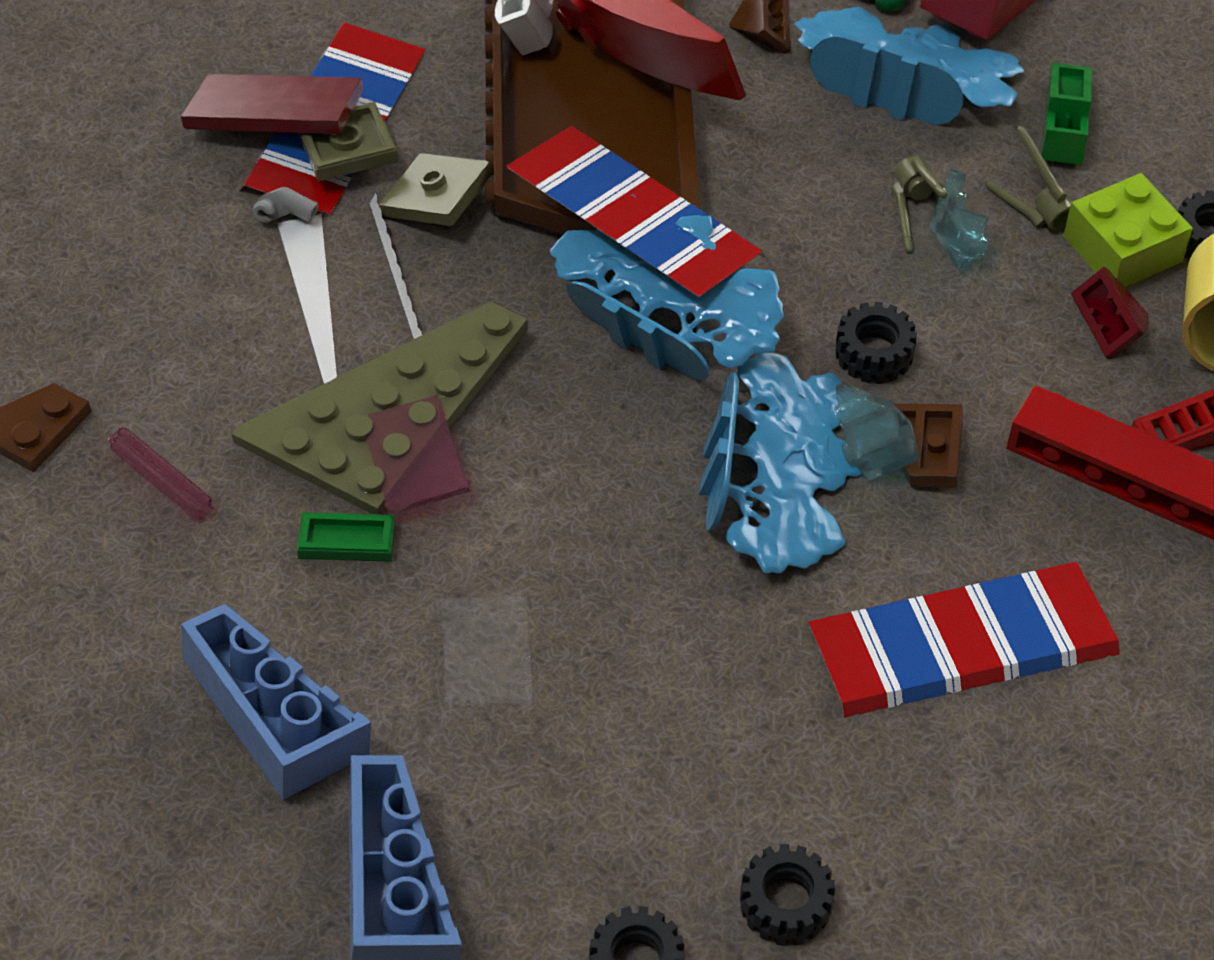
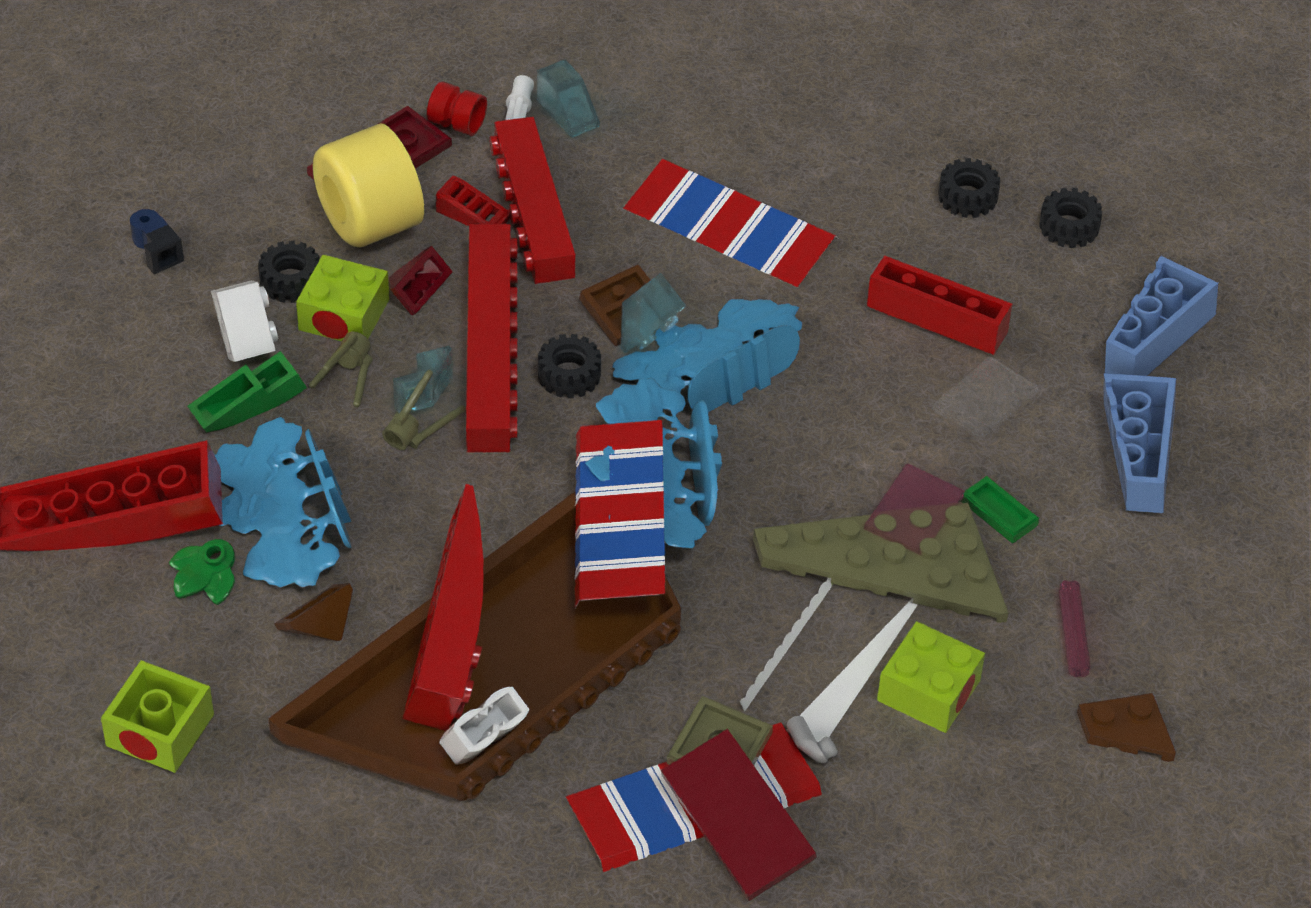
camera: 135 degrees left, 5 degrees down
(236, 315) = (930, 677): none -> lime brick
(436, 189) = (701, 663): plate -> none
(631, 681) = (939, 305): none -> red brick
(977, 308) = (490, 339): none -> red brick
(1155, 132) = (244, 320): none -> white brick

